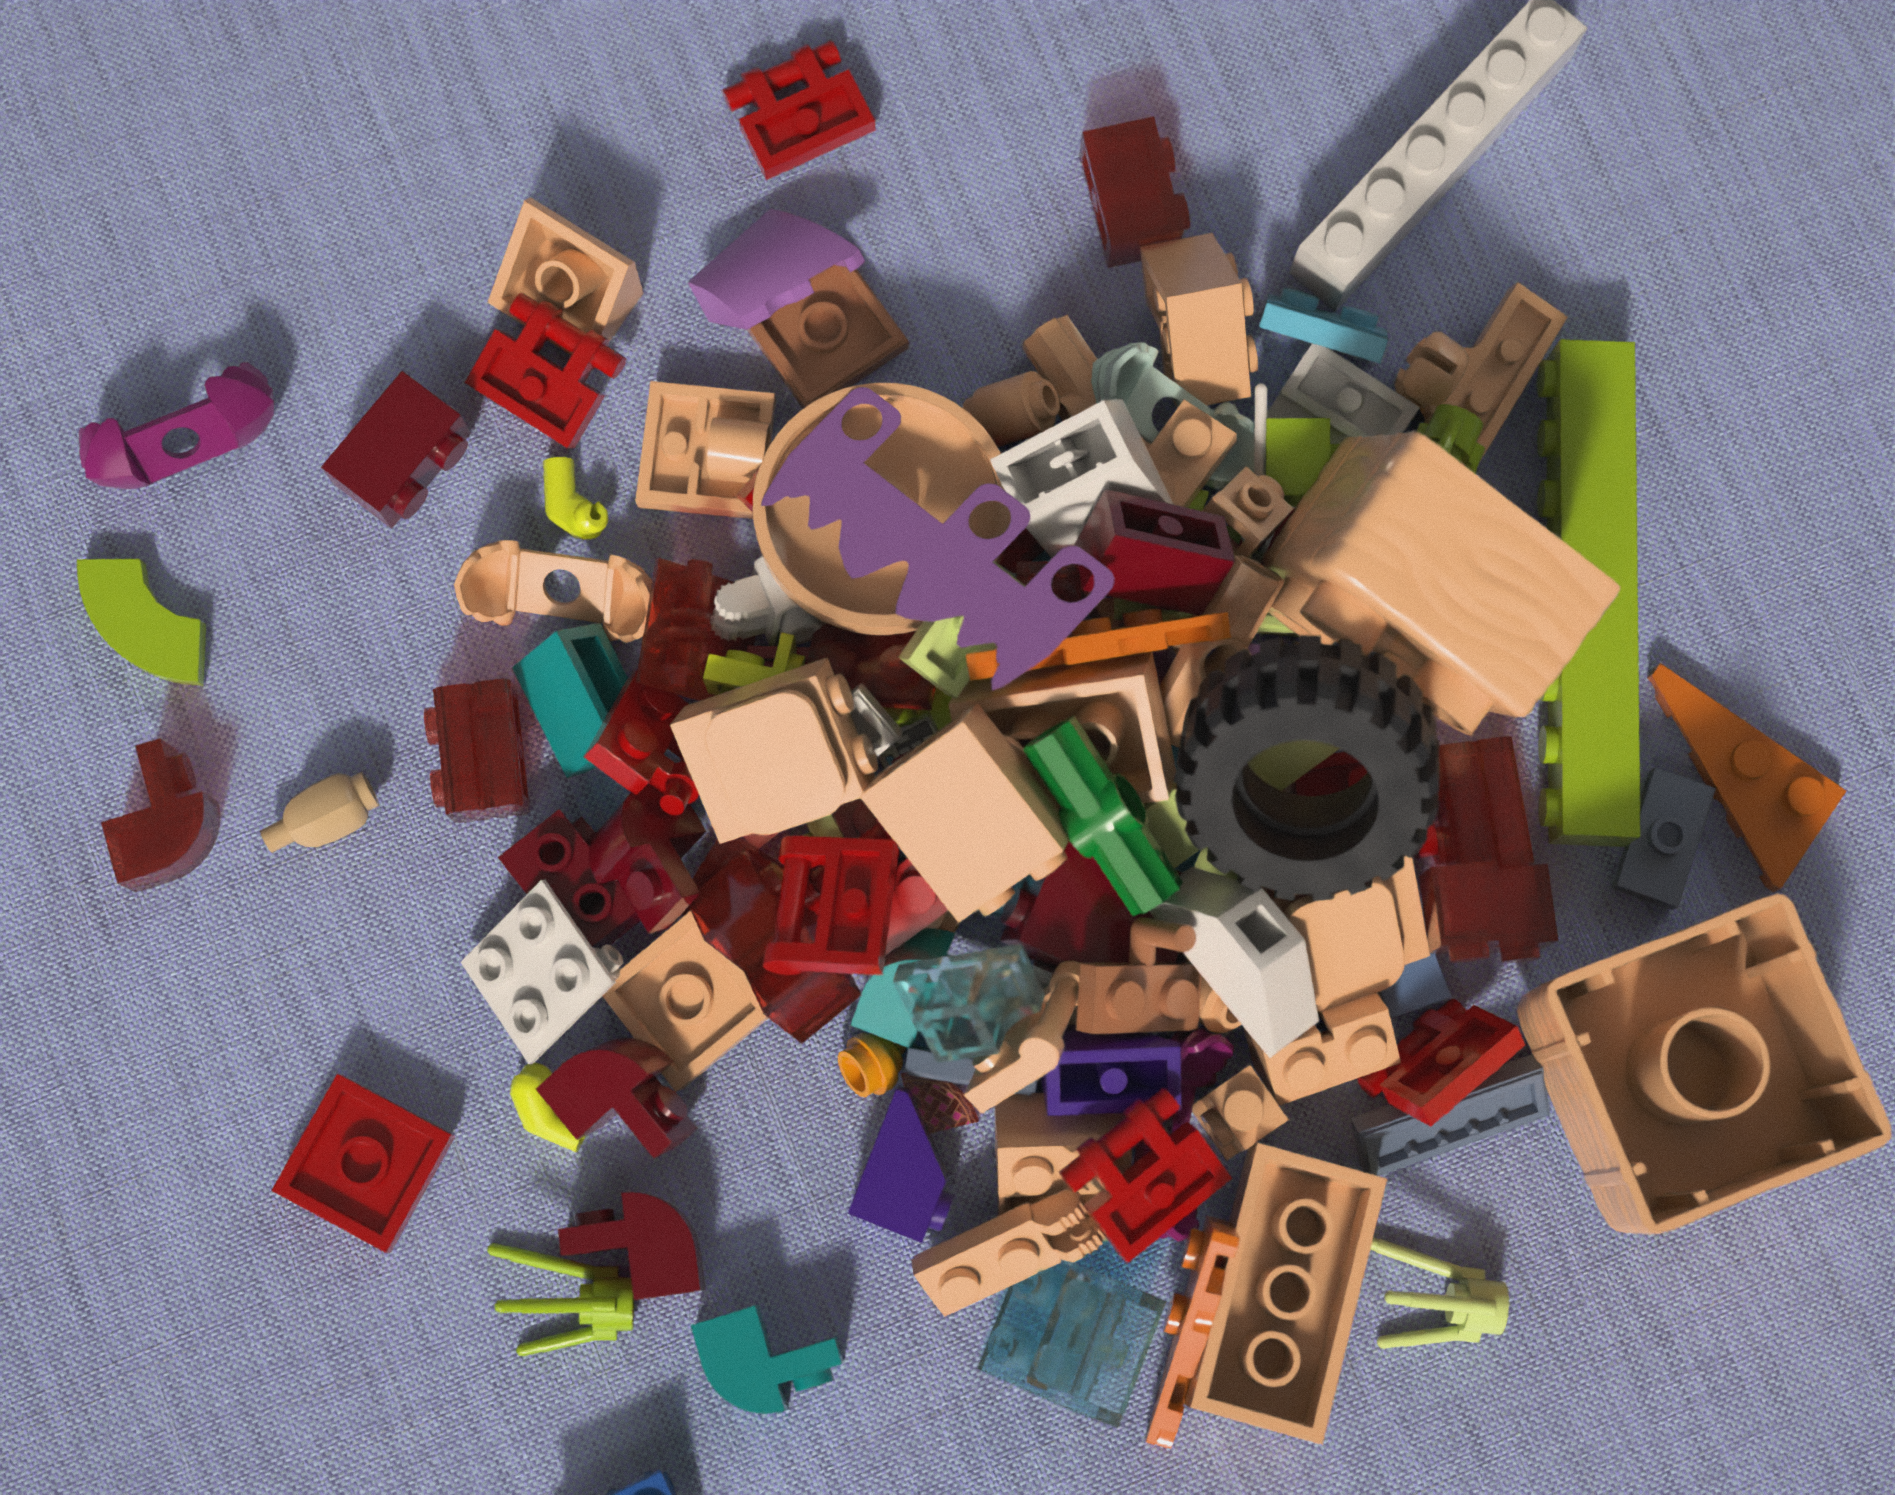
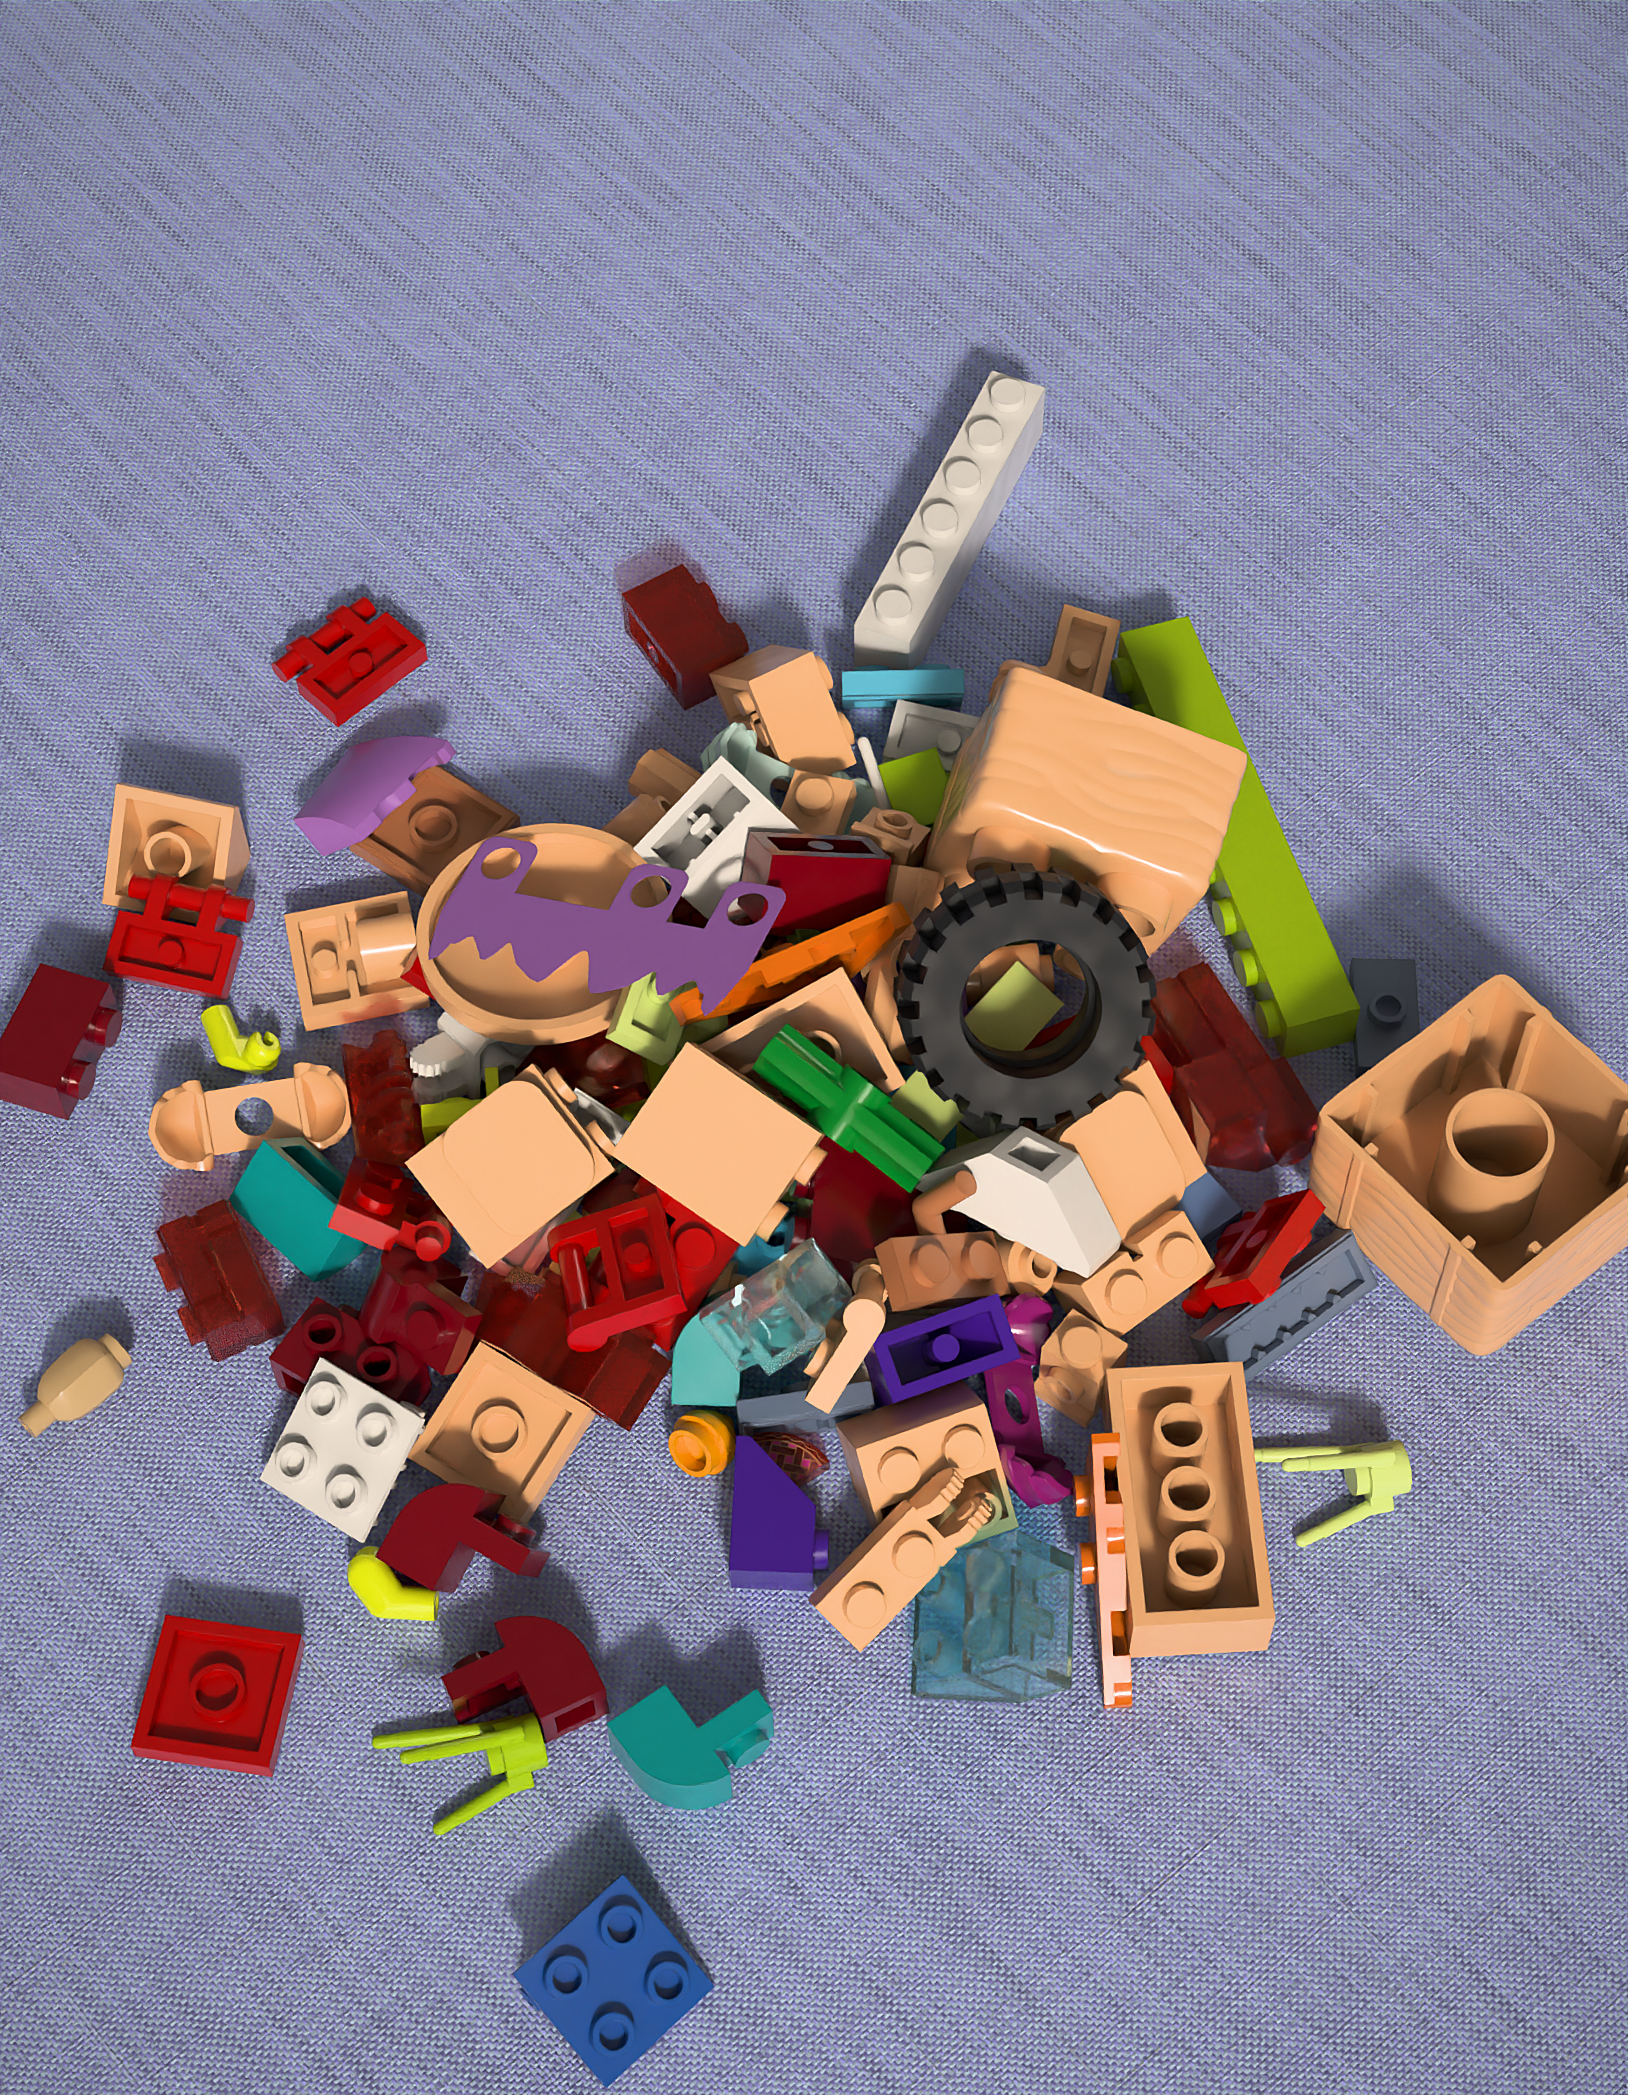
camera: 15 degrees left, 20 degrees down
(1157, 1188) = (1025, 1434): red plate -> none
(1764, 788) = (1449, 943): orange wing -> none

